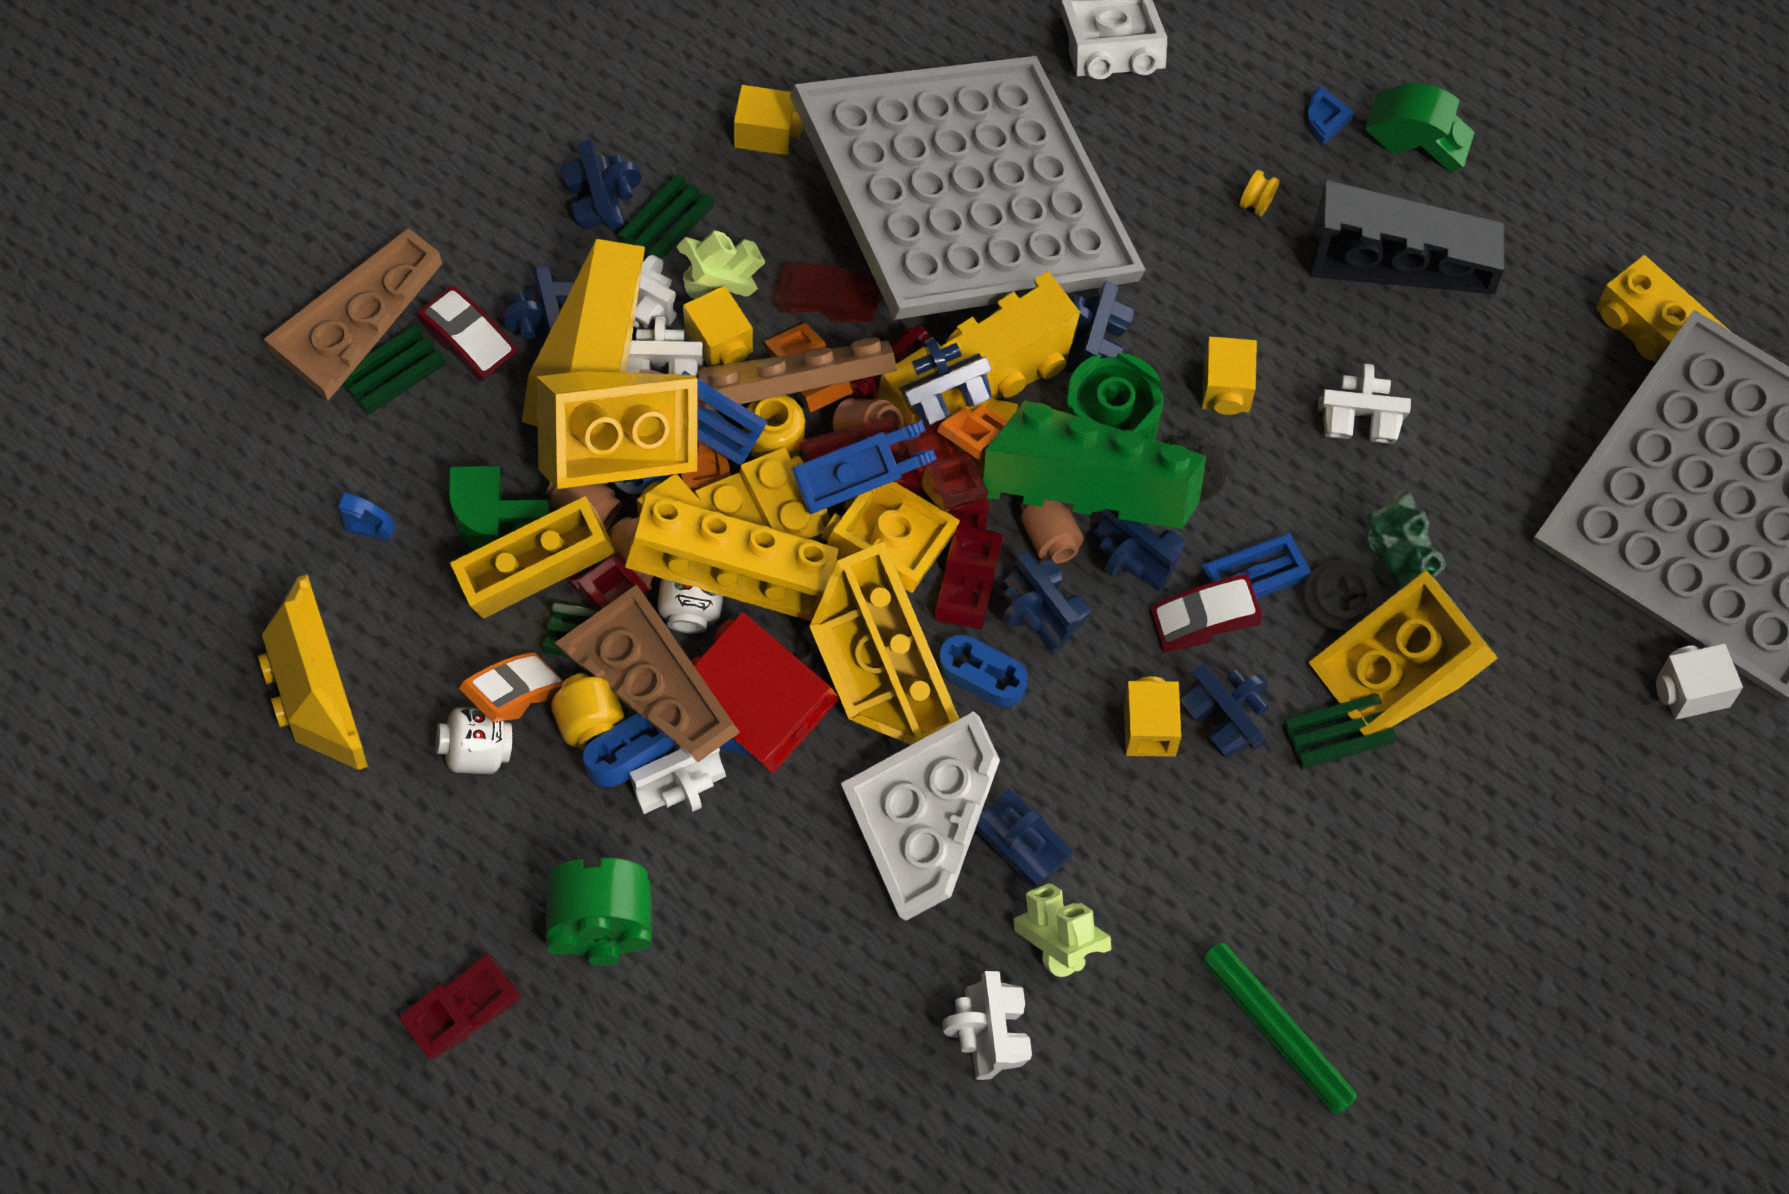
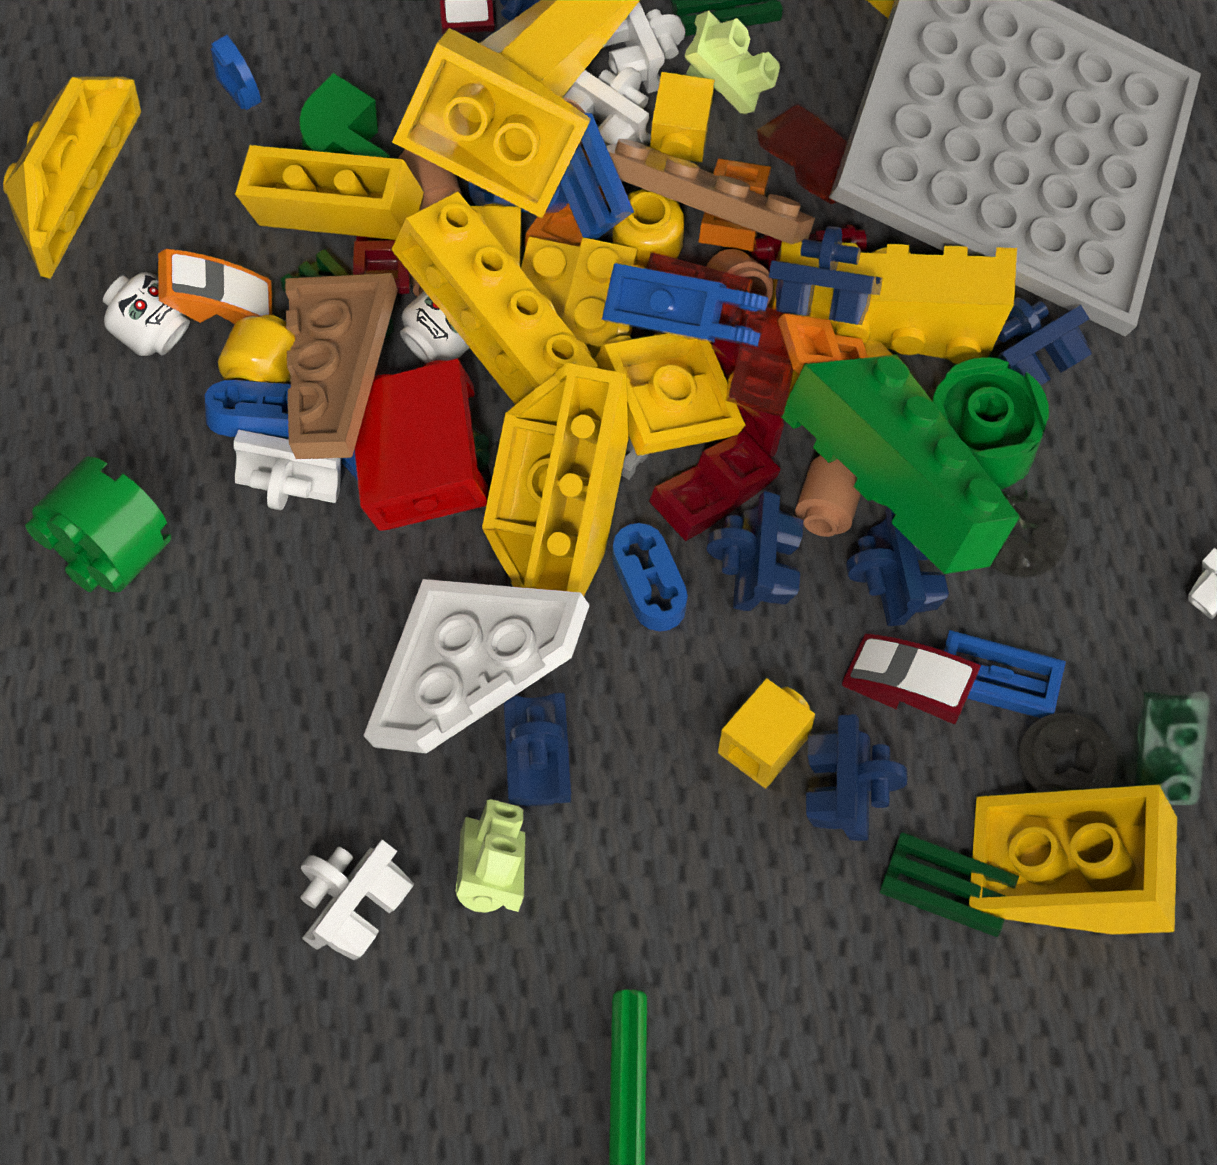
camera: 40 degrees right, 0 degrees up
(1229, 375) = (1133, 474): yellow brick -> none

